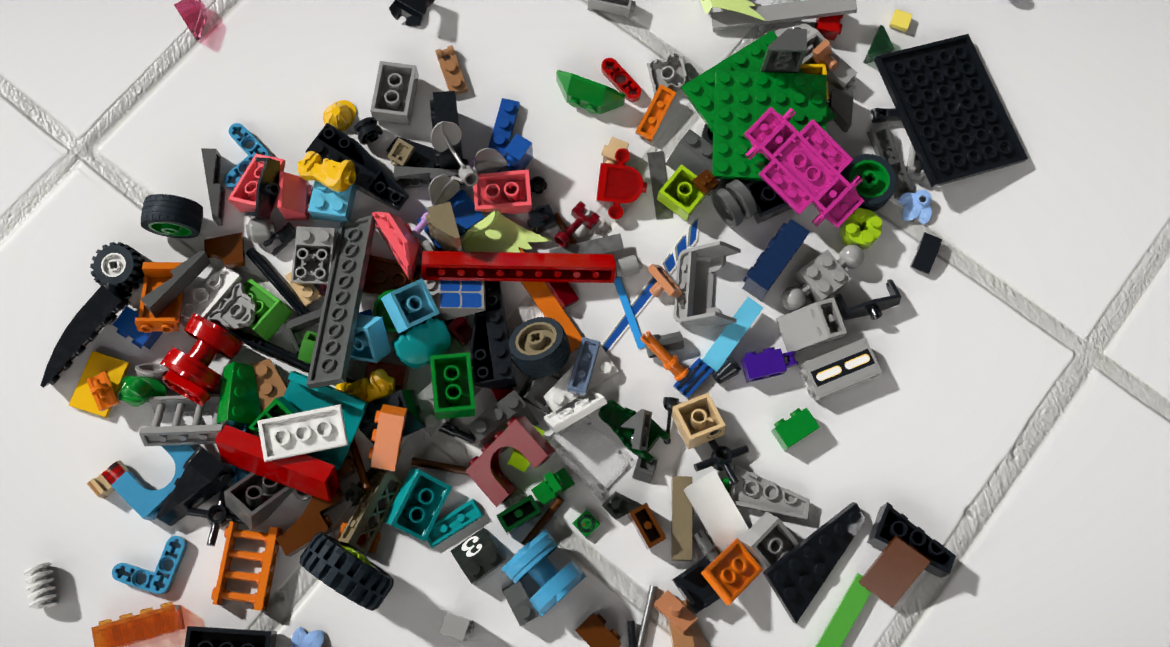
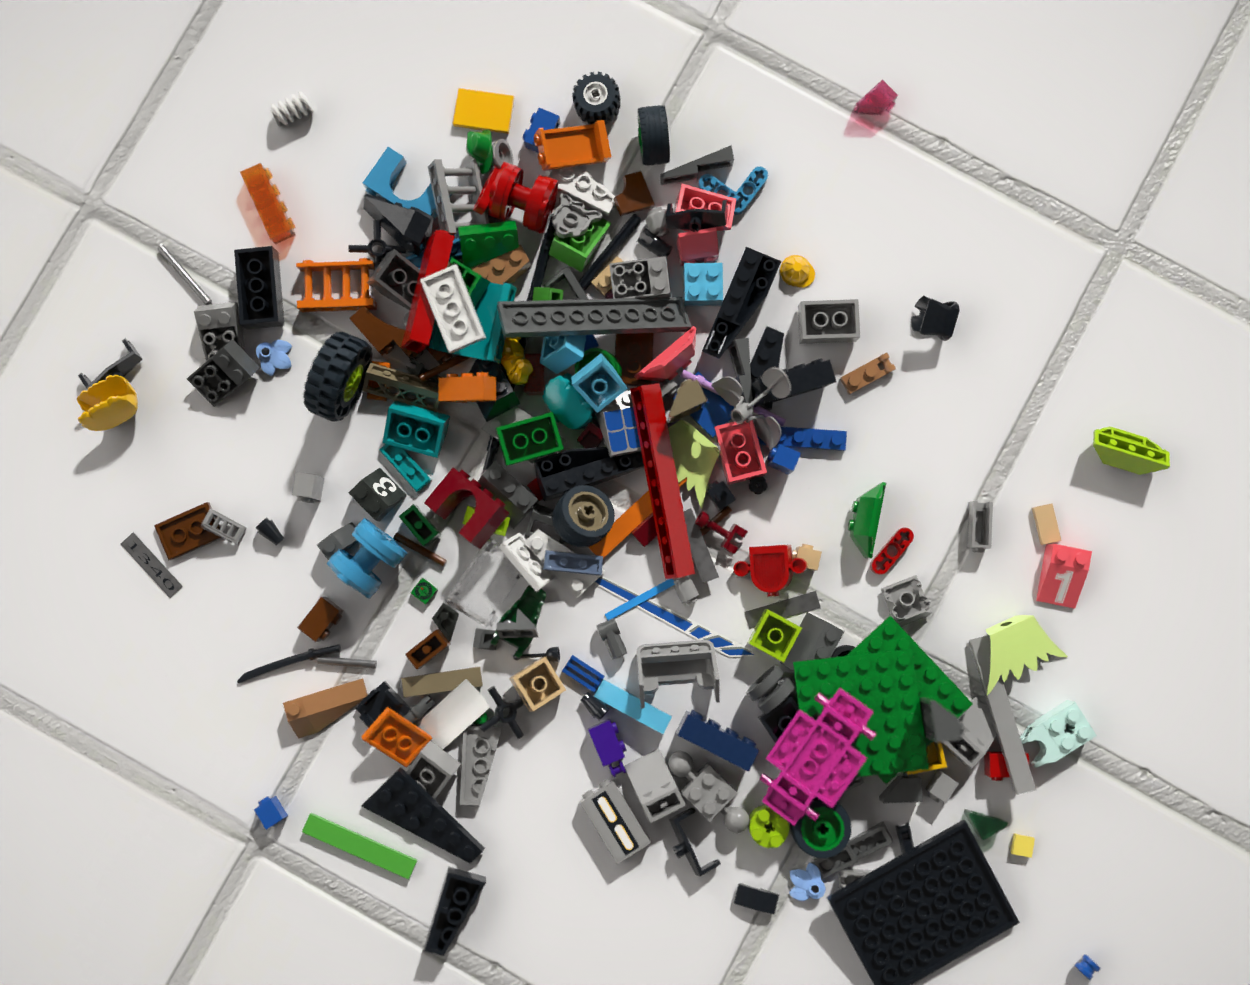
camera: 85 degrees right, 10 degrees up
(85, 328) = (543, 90): black wedge -> none
(102, 484) = (391, 139): leg -> none
(103, 391) = (473, 116): orange hips -> none
(154, 577) = (315, 204): dark azure beam -> none
(182, 277) = (596, 160): dark grey slope -> none
(330, 173) = (722, 278): yellow animal -> none
(367, 130) = (783, 302): black wheel -> none
(401, 153) = (763, 341): dark tan bracket -> none
(439, 466) = (457, 442): reddish brown bar -> none
(552, 486) = (453, 553): green bracket -> none
(655, 112) = (859, 593): orange plate -> none
(664, 282) = (674, 629): nougat tile -> none
(670, 362) = (592, 647): orange pin -> none
(675, 612) = (353, 688): nougat tile -> none
(705, 182) = (785, 656): reddish brown tile -> none
(795, 428) = (547, 781): green brick -> none
(823, 55) = (956, 765): nougat tile -> none
(894, 571) = (420, 896): reddish brown tile -> none

